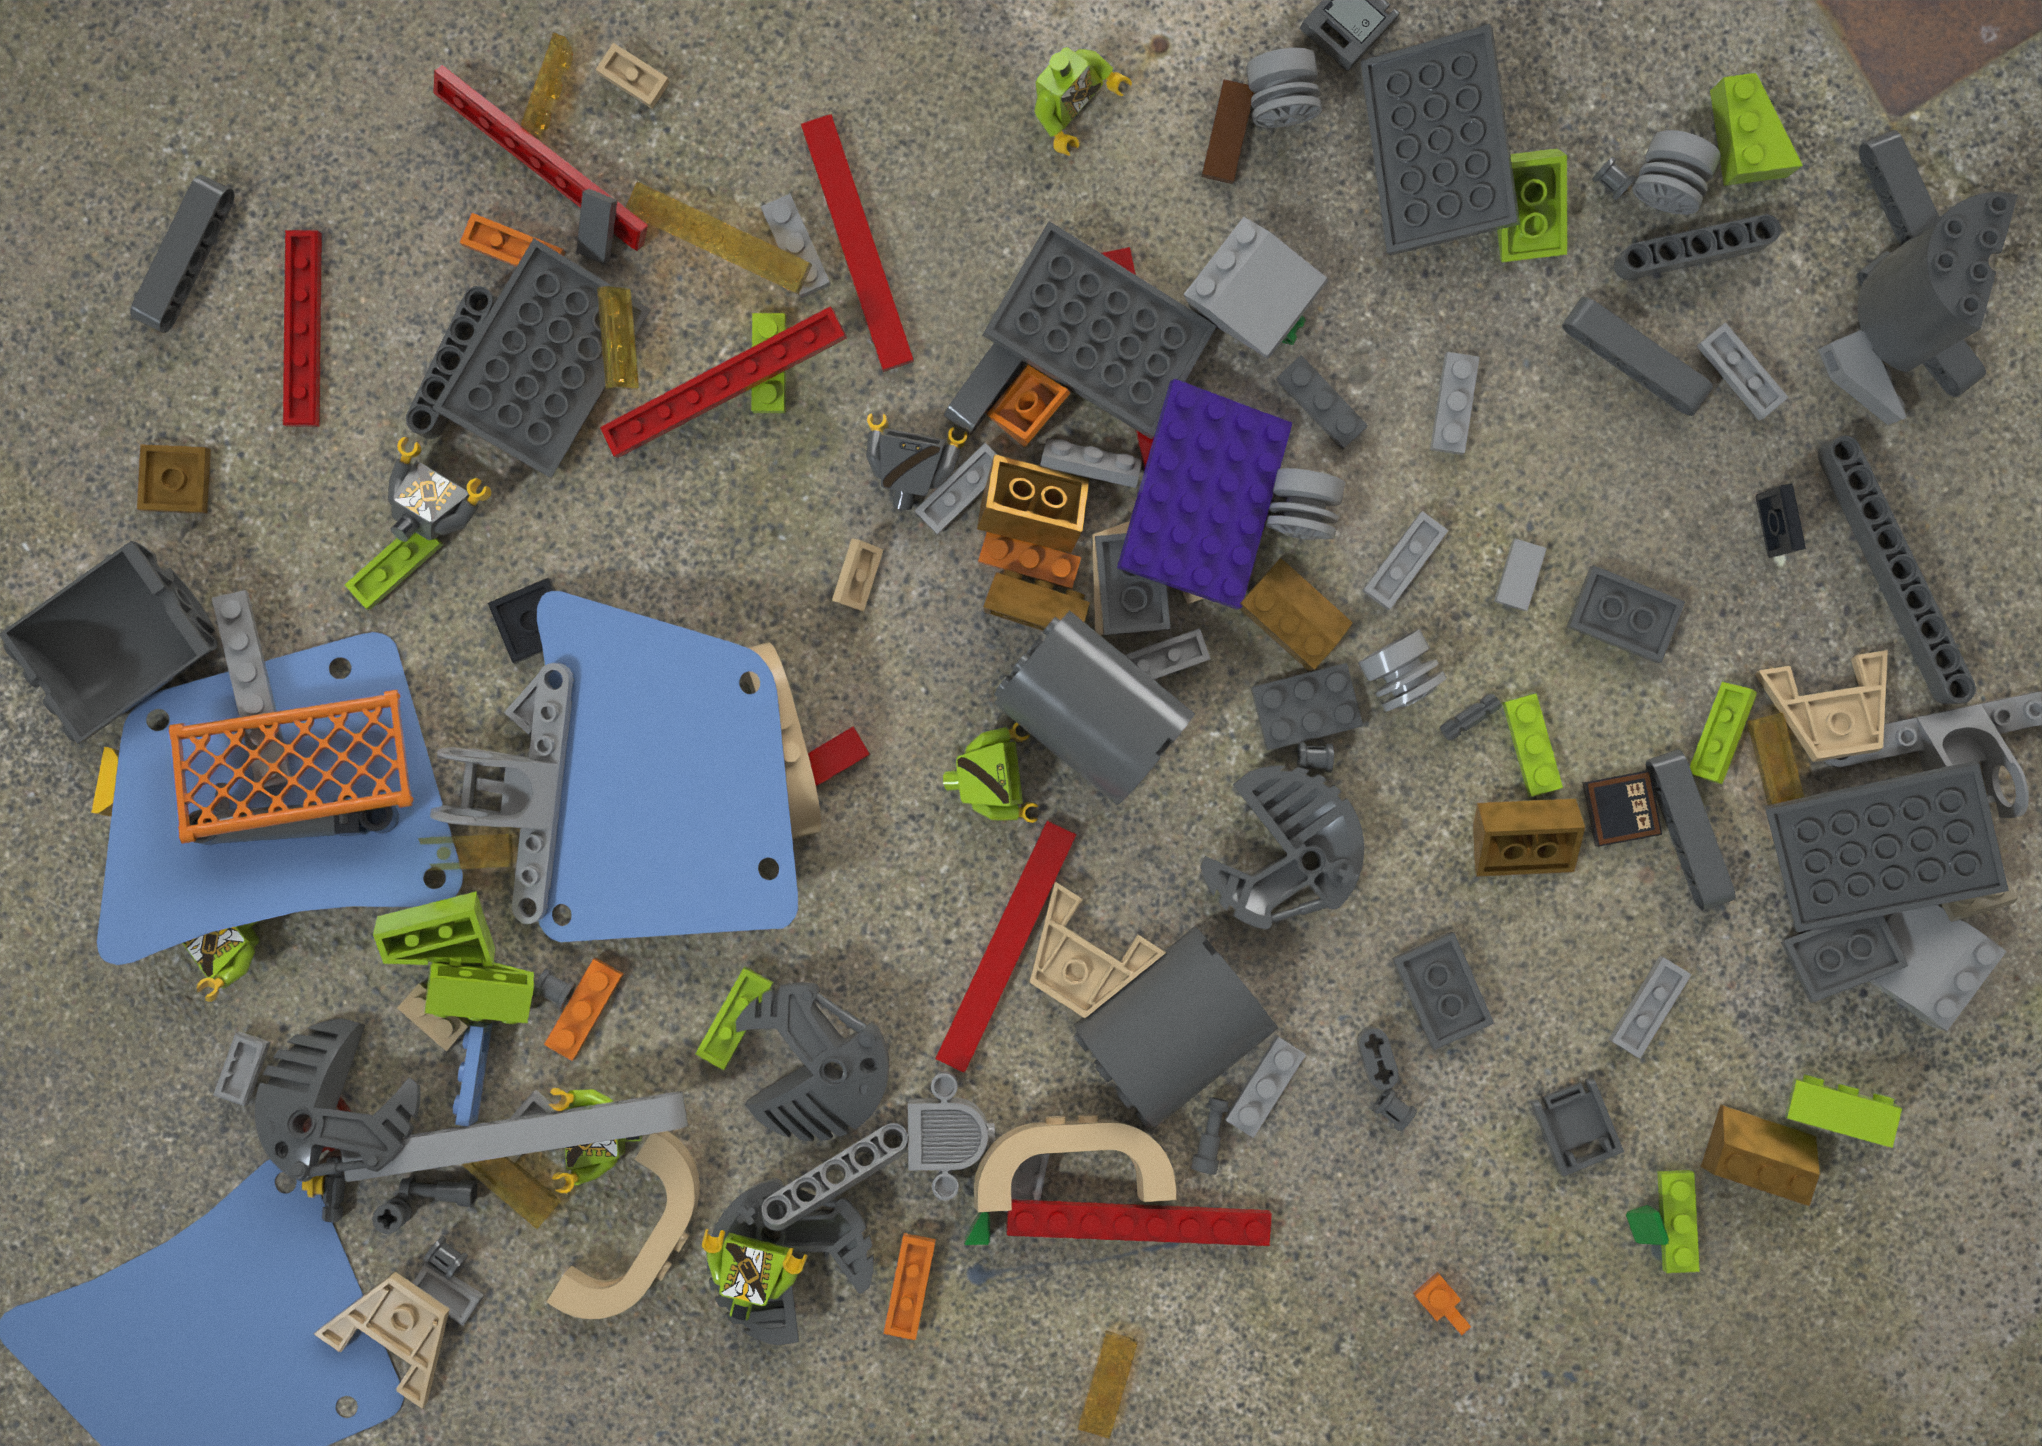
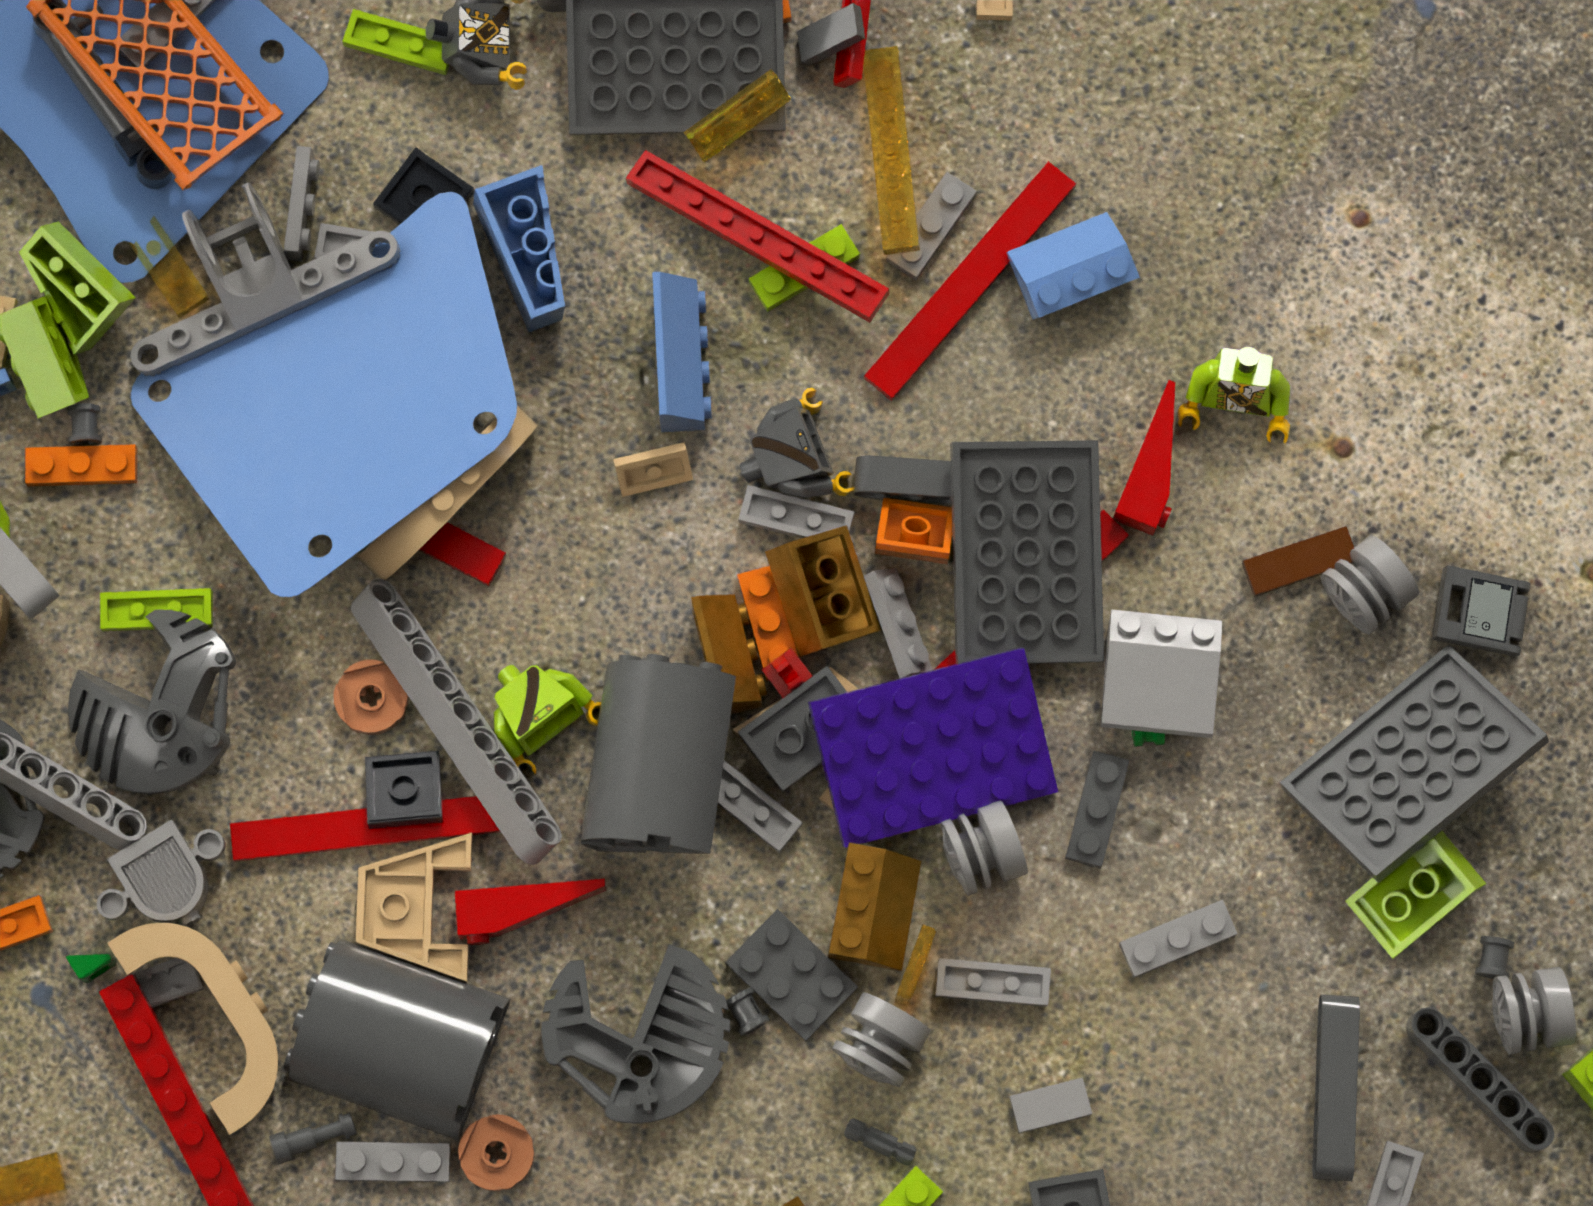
camera: 60 degrees right, 10 degrees down
(478, 718) = (301, 203): none -> light grey plate
(614, 565) = (523, 241): none -> medium blue wedge
(779, 499) = (679, 353): none -> medium blue slope
(886, 903) = (359, 715): none -> nougat plate
(896, 156) = (1072, 265): none -> medium blue slope
(963, 843) = (456, 721): none -> light grey beam
(990, 912) = (403, 789): none -> black tile
(1079, 569) = (786, 672): none -> red tile
(1097, 203) = (1148, 485): none -> red slope
(1126, 896) = (503, 909): none -> red slope
(1324, 1009) = (488, 1132): none -> nougat plate
(1362, 611) = (915, 965): none -> clear yellow tile

